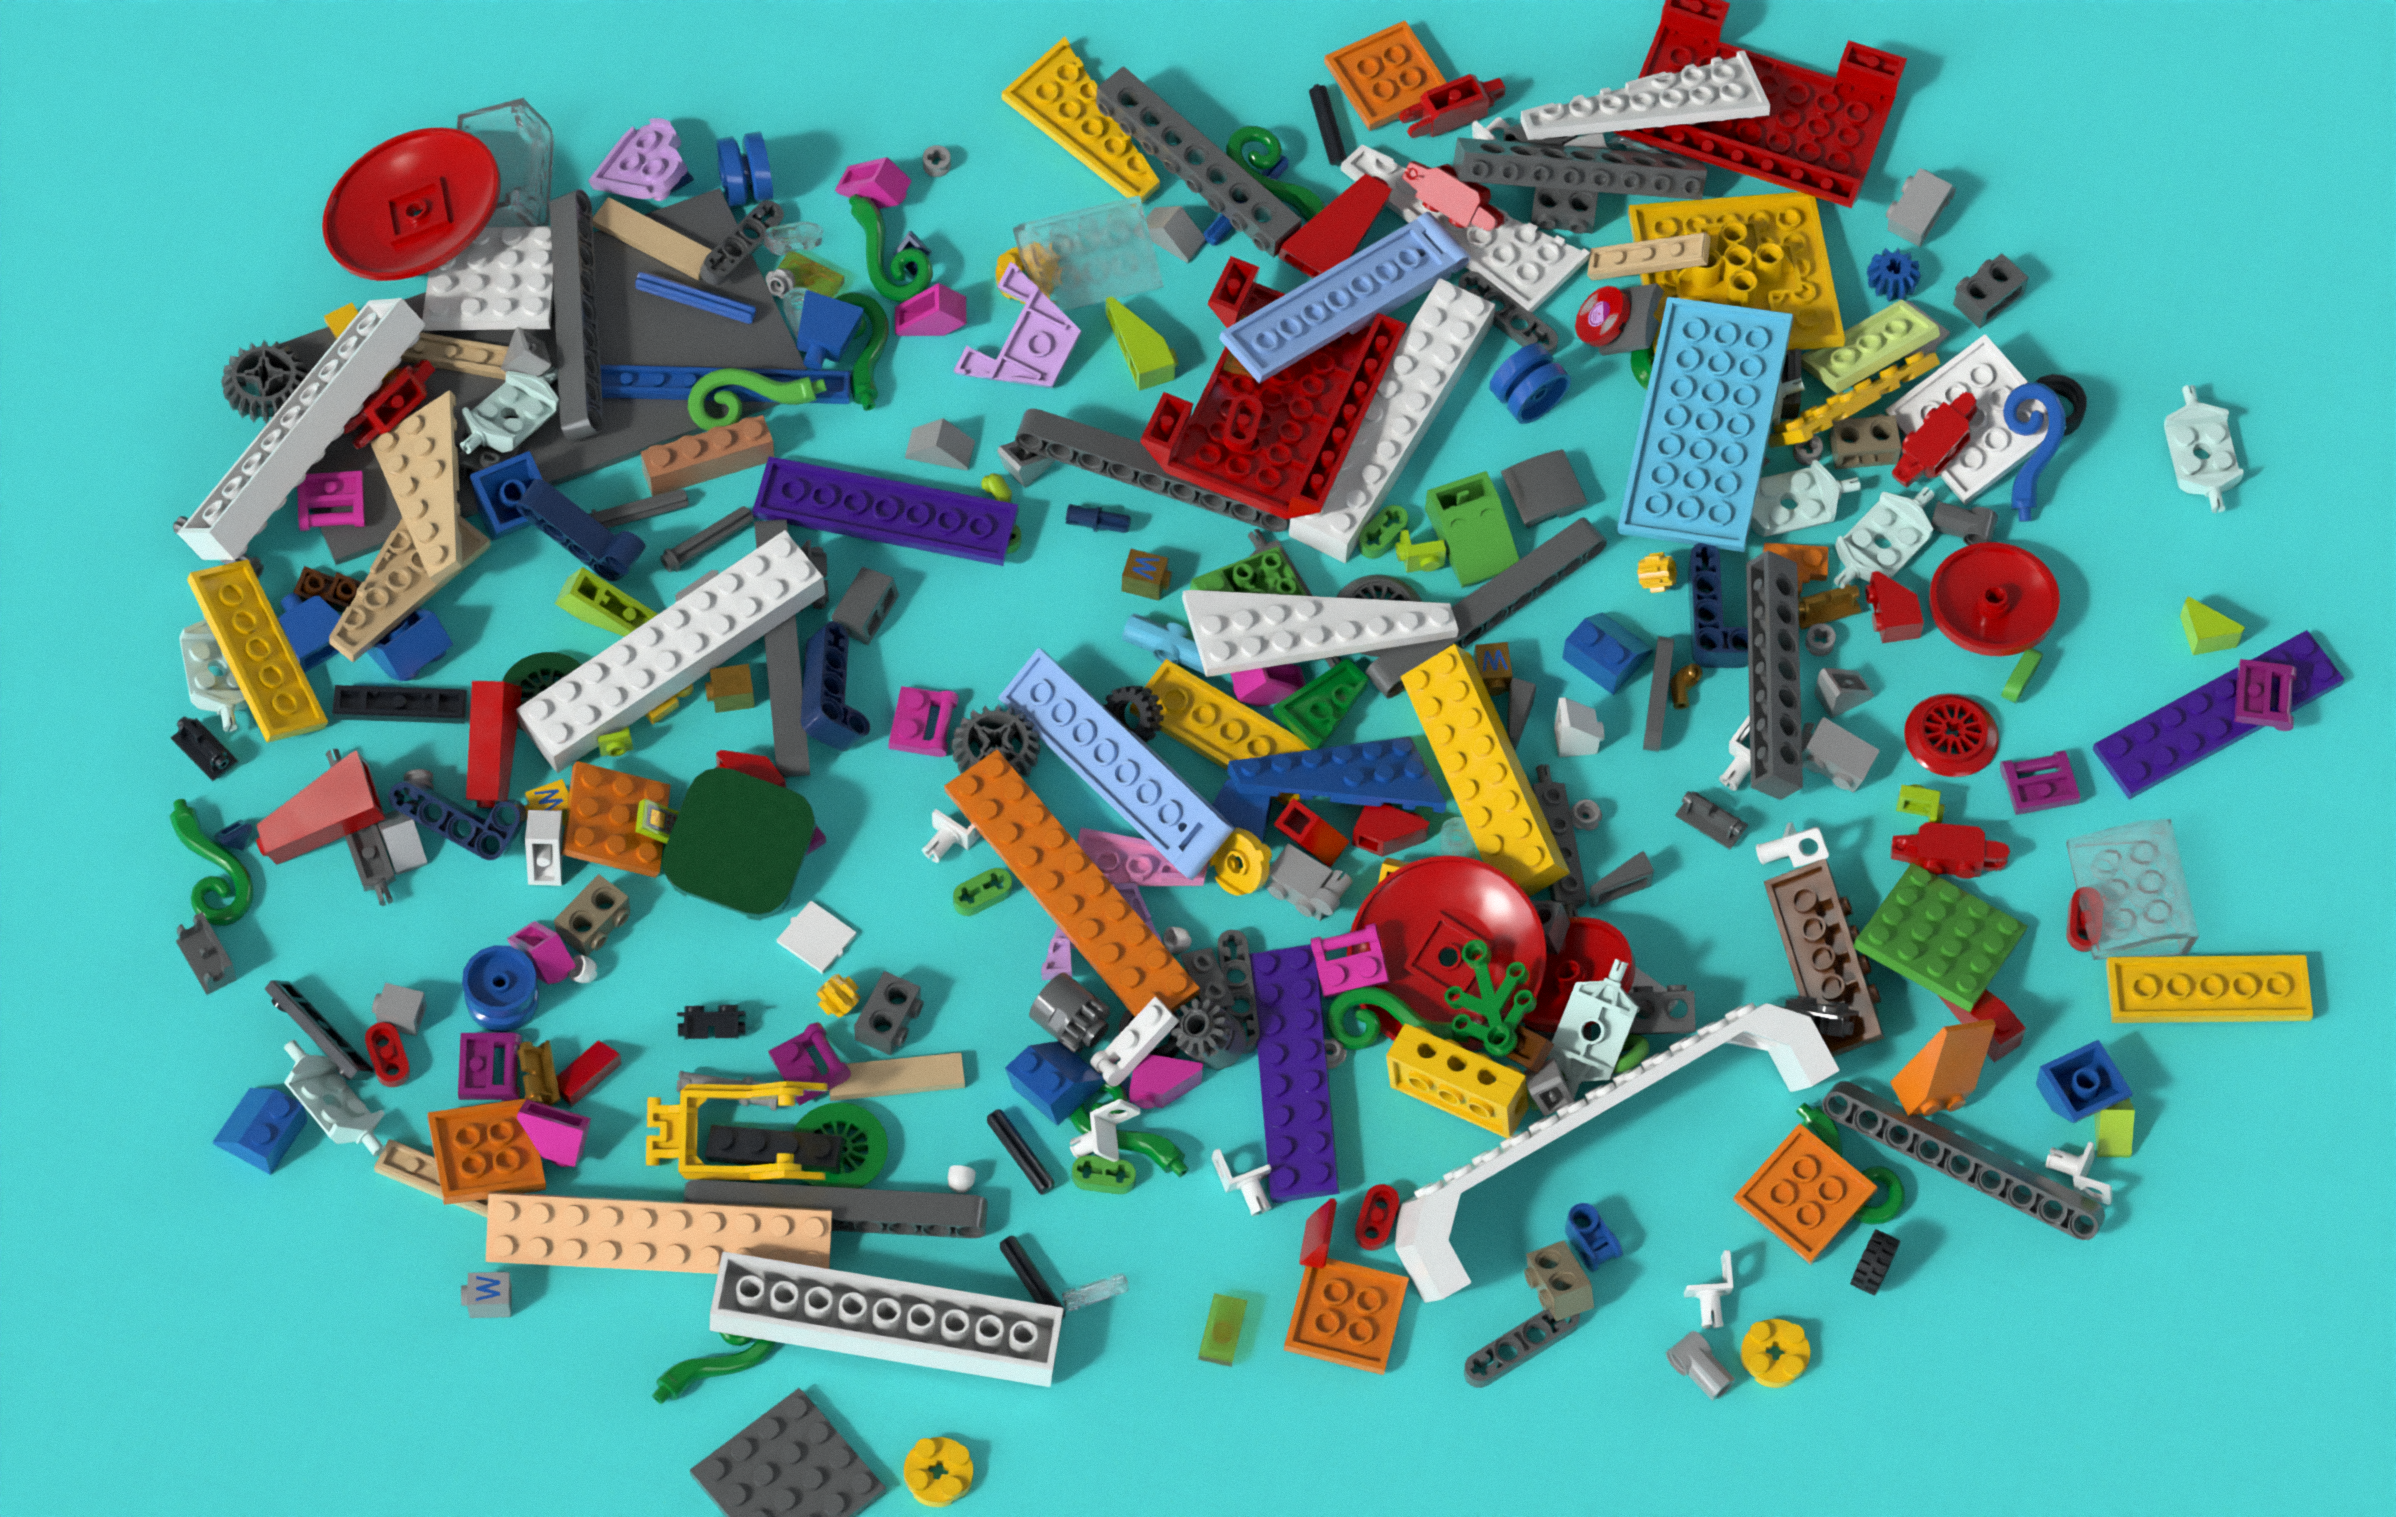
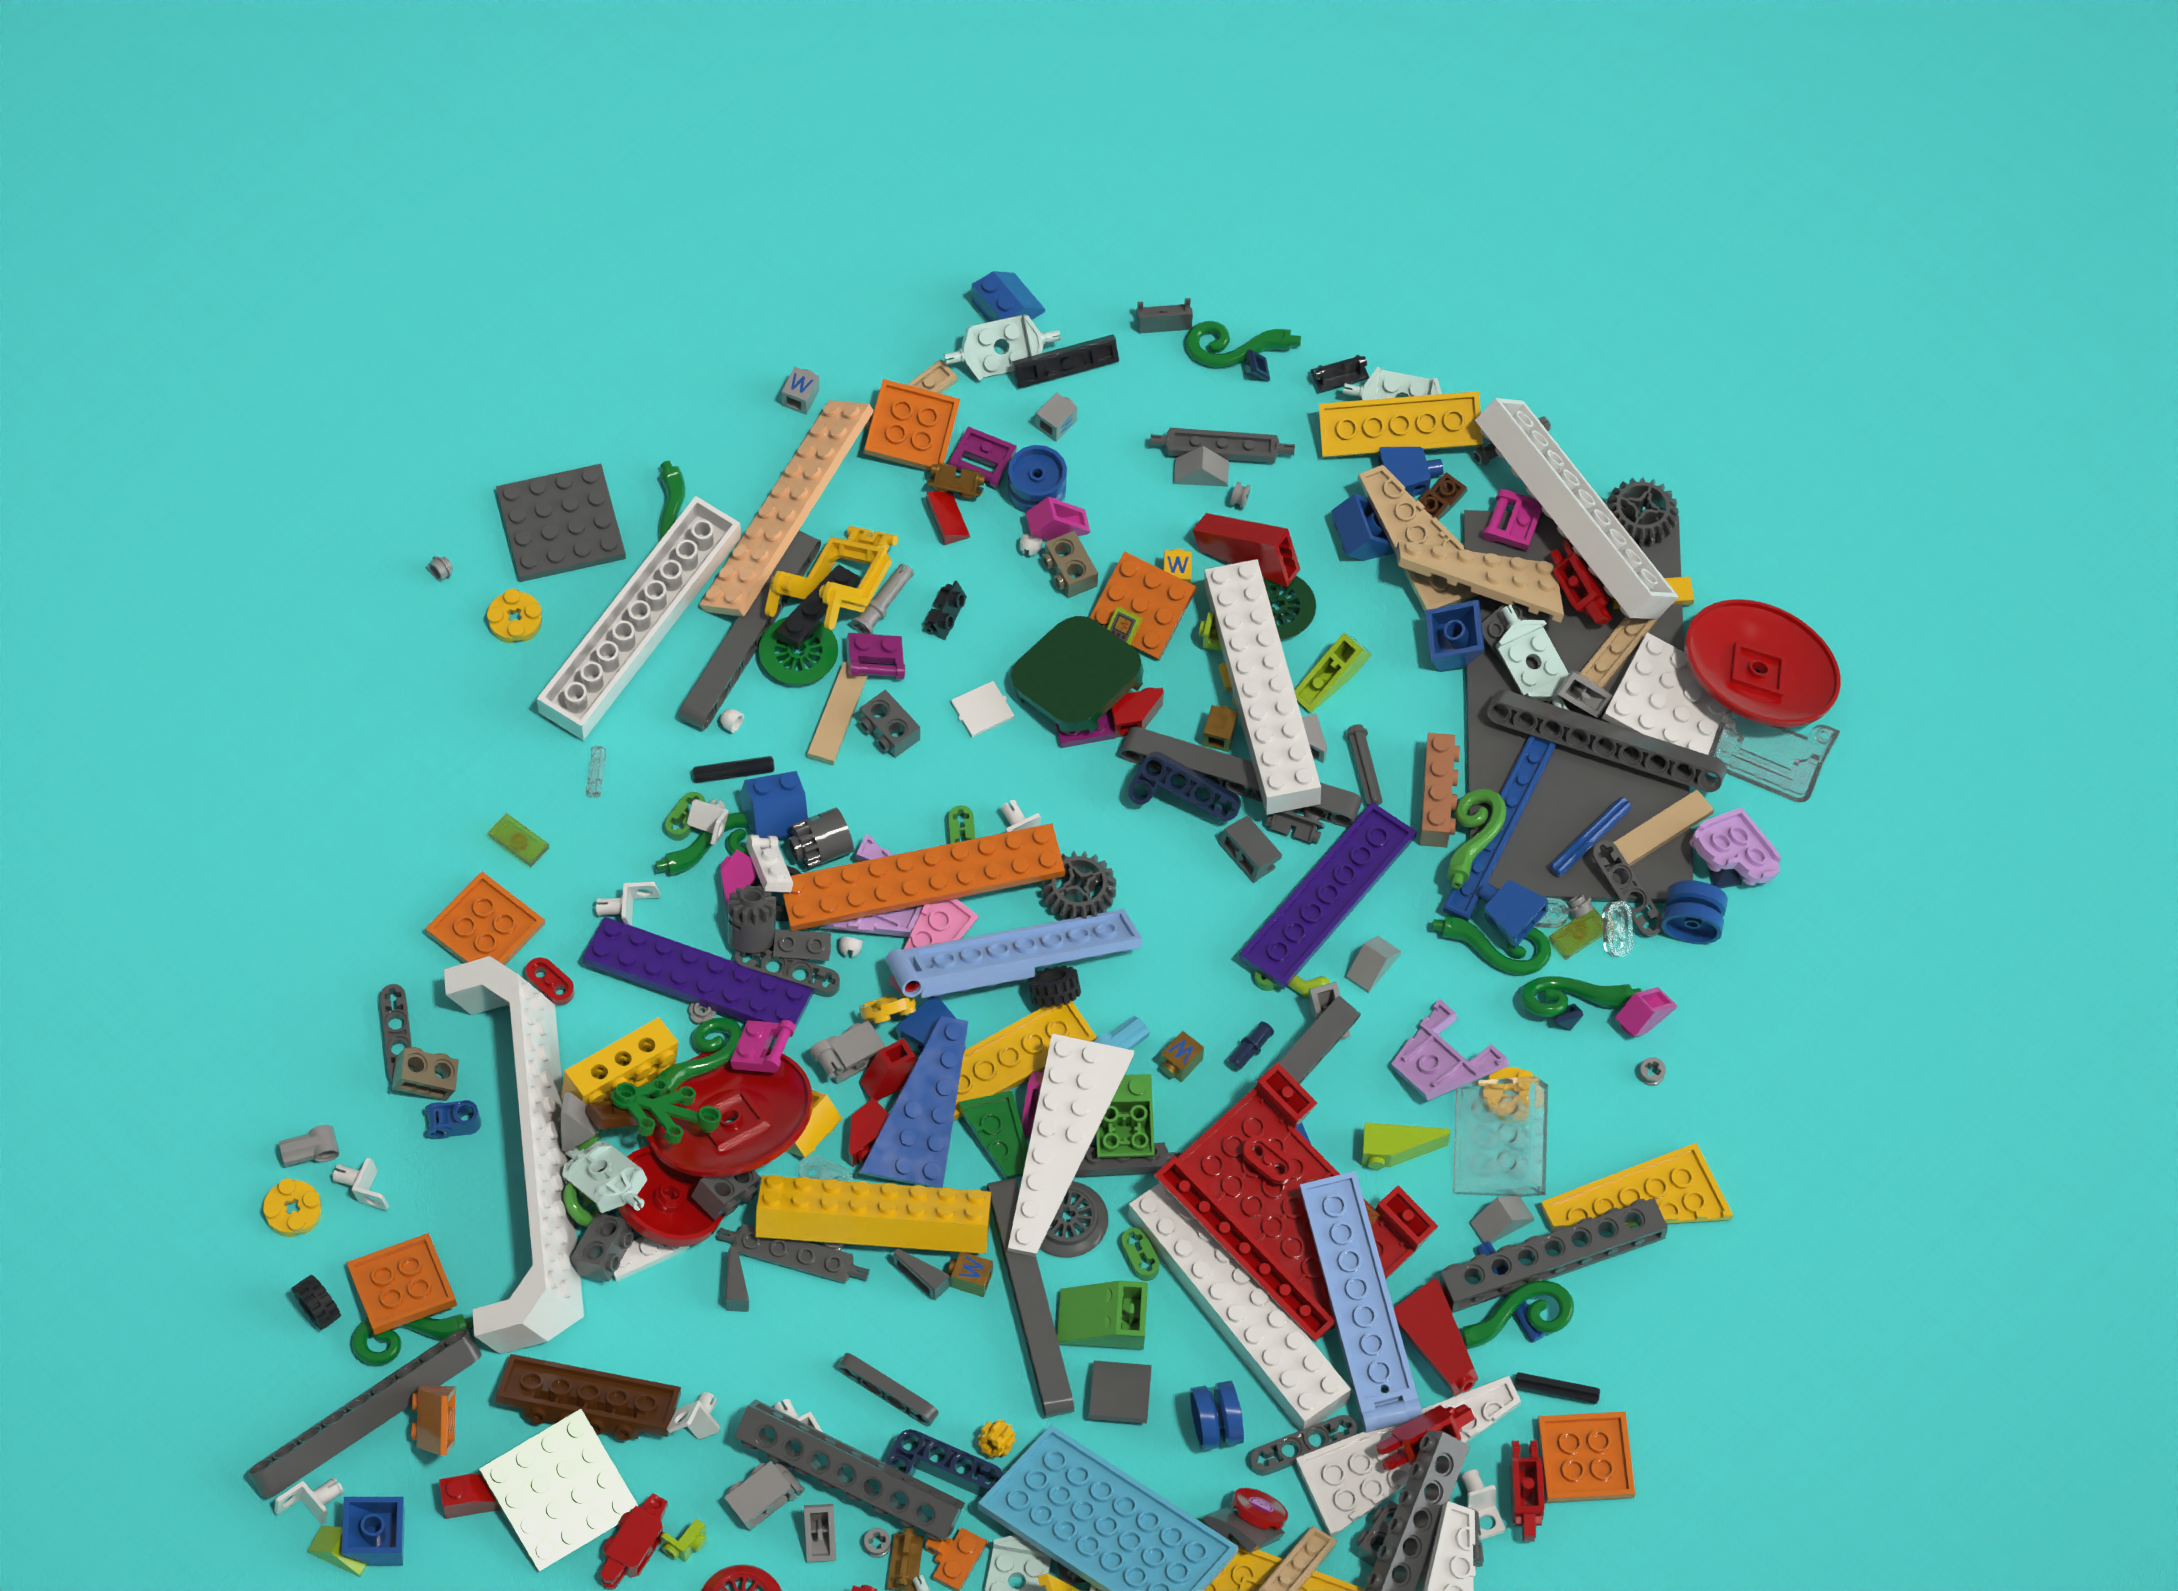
camera: 115 degrees right, 0 degrees up
(322, 812) = (1240, 420): slope -> none
(389, 1056) = (1025, 396): red plate -> none
(399, 704) = (1317, 506): black plate -> none
(451, 815) = (1191, 499): dark blue beam -> none
(544, 847) = (1143, 543): white slope -> none
(555, 1132) = (903, 469): dark pink slope -> none
(579, 533) = (1401, 667): dark blue beam -> none
(641, 509) = (1416, 696): dark grey axle -> none
(838, 995) = (920, 695): yellow gear -> none
(912, 720) = (1135, 845): dark pink plate -> none
(931, 313) = (1499, 1003): dark pink slope -> none
(1028, 1273) = (628, 735): black axle -> none
(1318, 1236) = (551, 930): red slope -> none
(1420, 556) = (1104, 1258): lime bracket -> none
(1576, 729) = (881, 1304): white slope -> none
(1586, 807) = (805, 1279): light grey plate -> none
(1605, 651) = (947, 1369): blue slope -> none
(1682, 683) = (890, 1415): pearl gold arm -> none
(1711, 819) = (757, 1378): dark grey hinge -> none
(1831, 1017) = (536, 1351): dark grey hinge -> none

